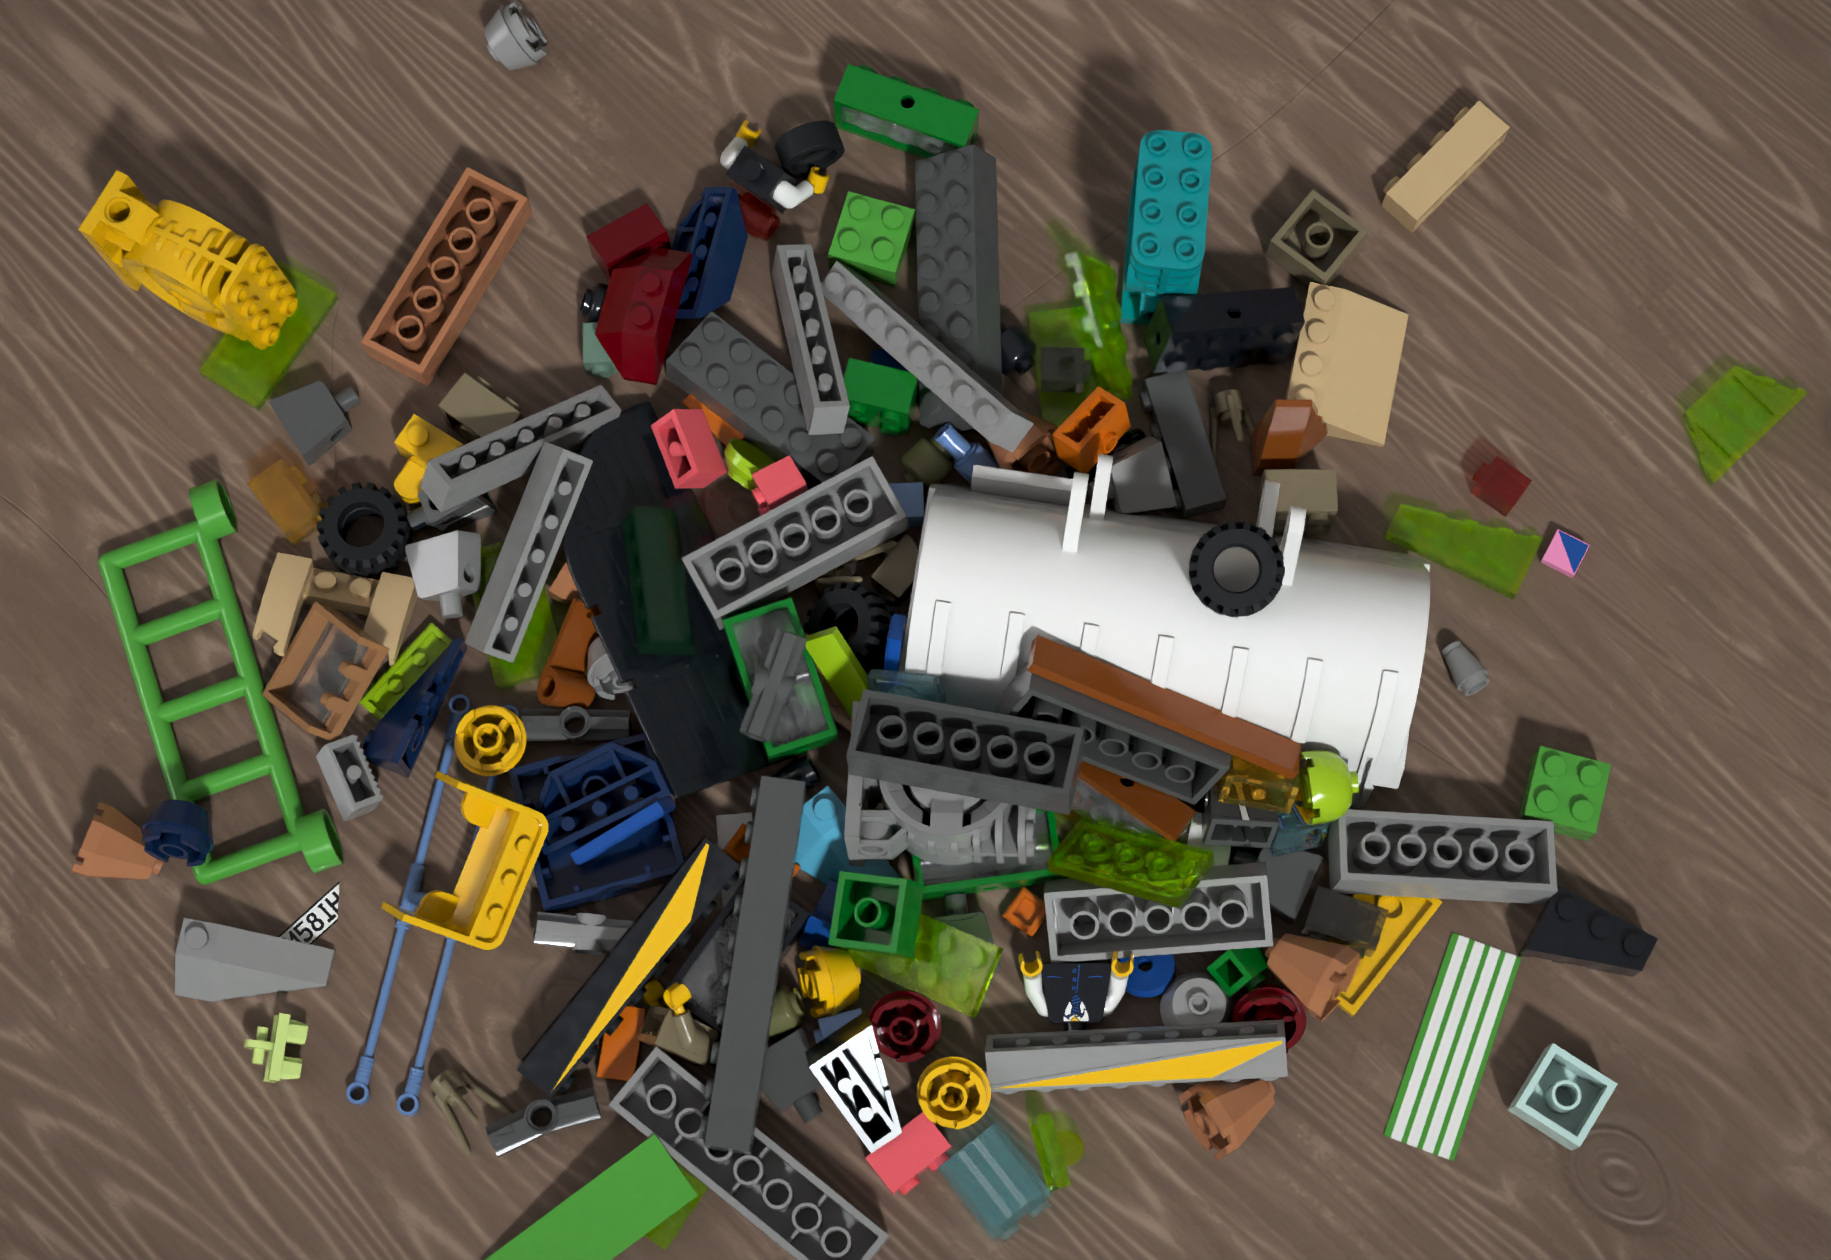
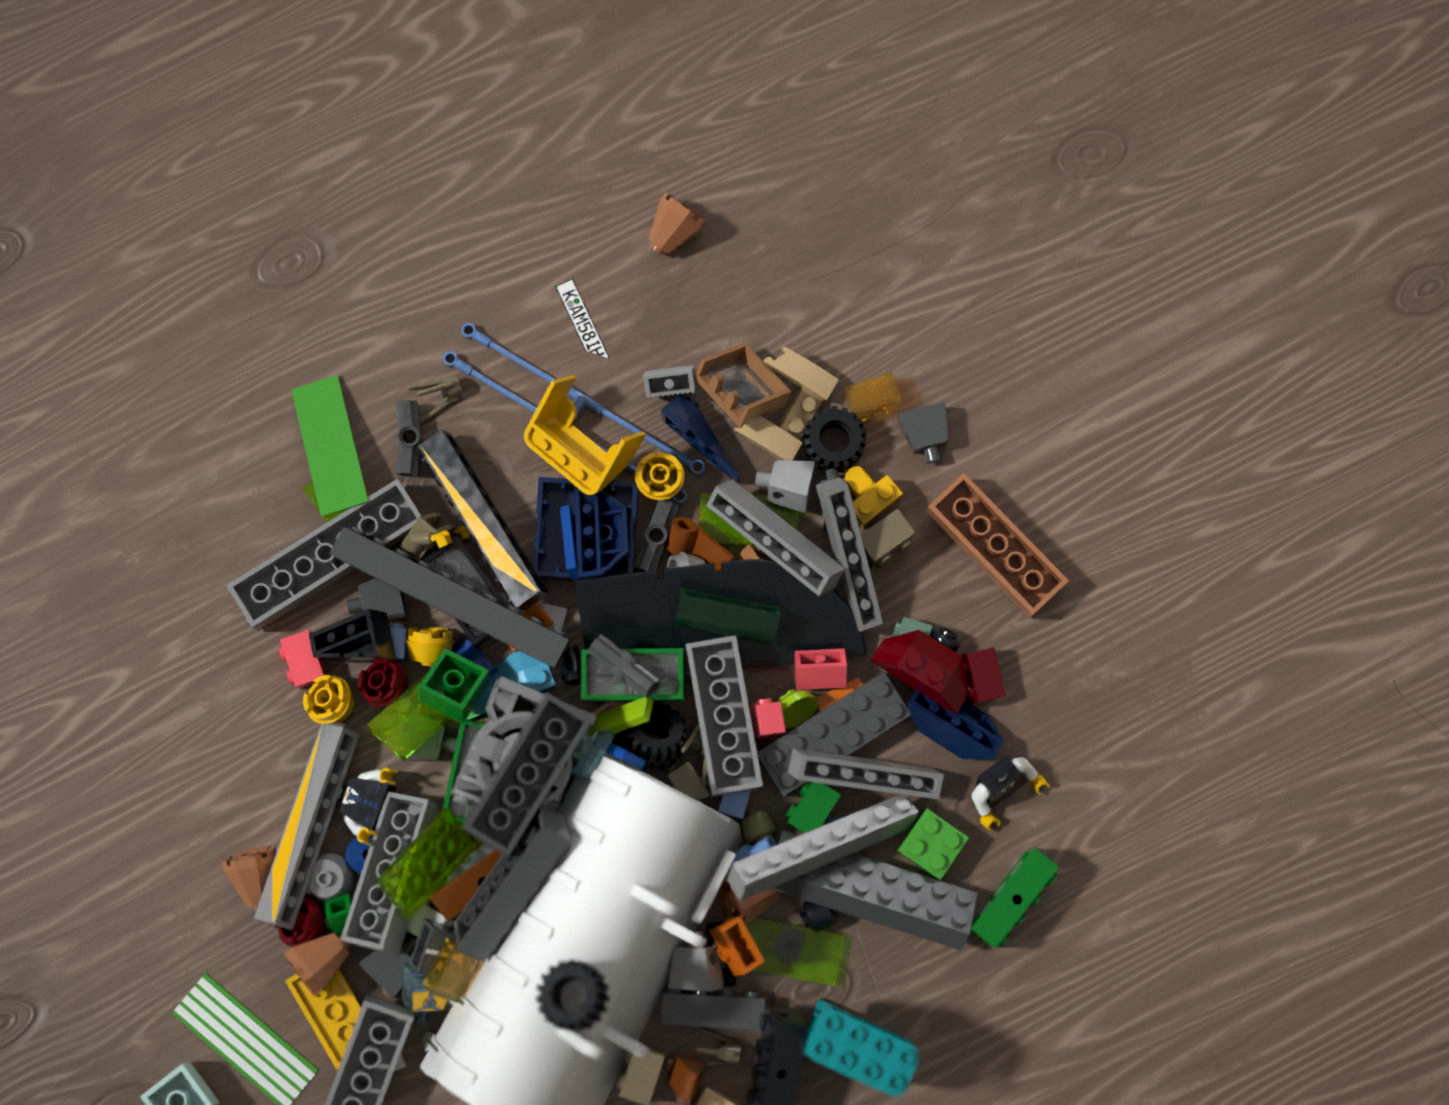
camera: 110 degrees right, 5 degrees up
(179, 831) = (667, 264): dark blue cone -> none
(190, 262) = (1050, 373): yellow brick -> none
(232, 962) = (576, 282): light grey wedge -> none
(254, 372) = (995, 417): clear neon green plate -> none
(277, 1065) = (503, 286): yellowish green hips -> none
(308, 833) = (875, 344): bright green fence -> none
(405, 671) = (731, 441): lime tile -> none
(515, 38) = (1159, 644): light grey cone -> none
(583, 932) = (519, 498): light grey piece -> none
(621, 1049) = (433, 499): orange tile -> none
(758, 217) = (972, 768): clear red brick -> none
(787, 1011) = (421, 613): olive head -> none
(809, 146) = (1012, 822): black tyre -> none
(995, 1183) = (264, 708): clear light blue brick -> none
(1026, 912) = (432, 789): orange tile -> none
(1055, 1150) = (271, 754): clear neon green tile -> none
(1097, 289) = (814, 984): clear neon green wing -> none
(1164, 707) = (510, 918): dark orange tile -> none
(1326, 785) = (429, 1014): lime cylinder -> none
(1344, 921) = (343, 996): clear smoke brick -> none

